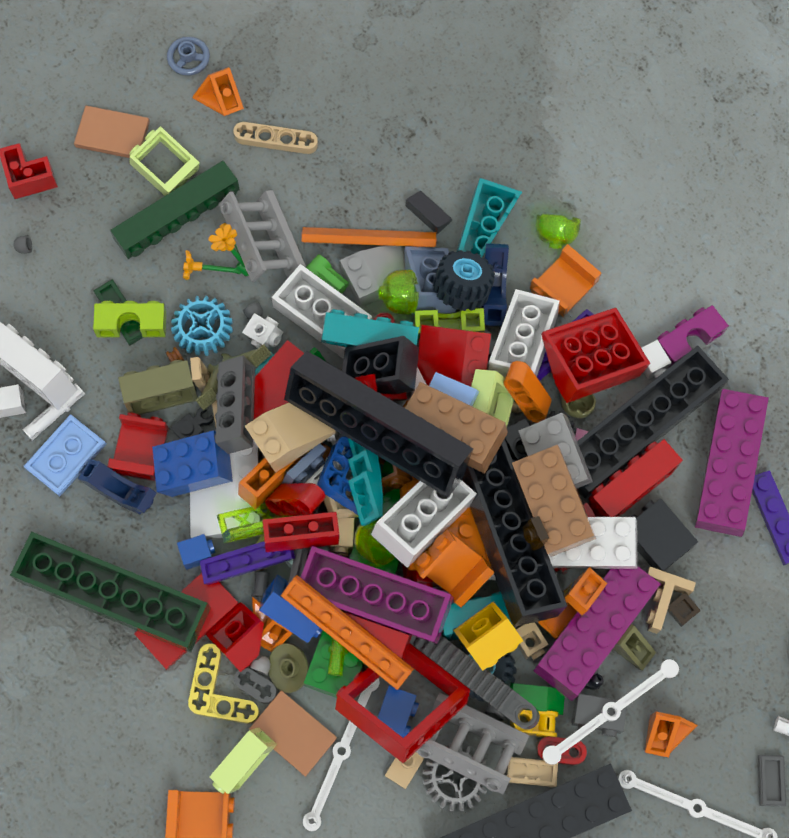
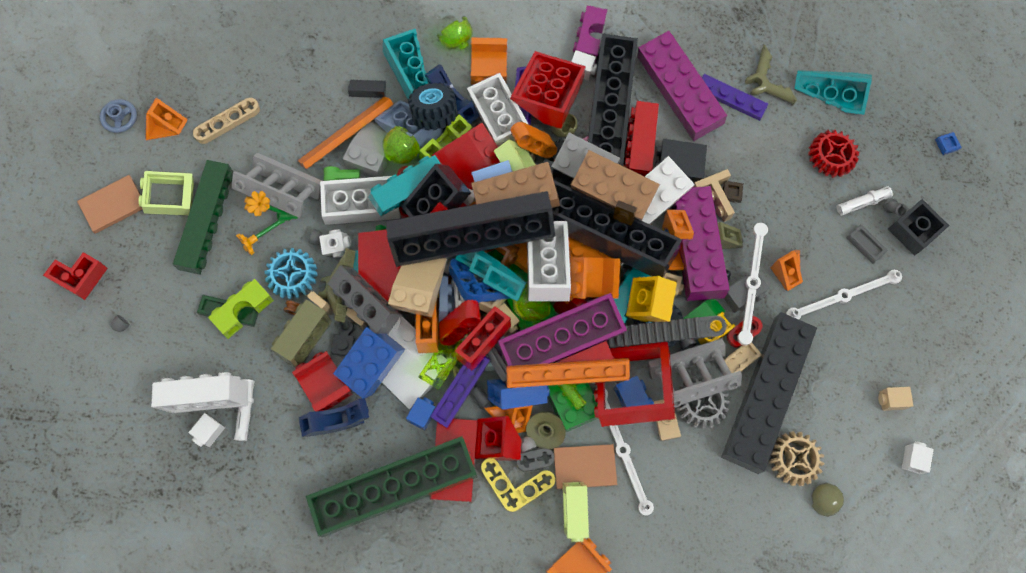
camera: 45 degrees left, 0 degrees up
(64, 455) = (277, 431): light blue tile -> none

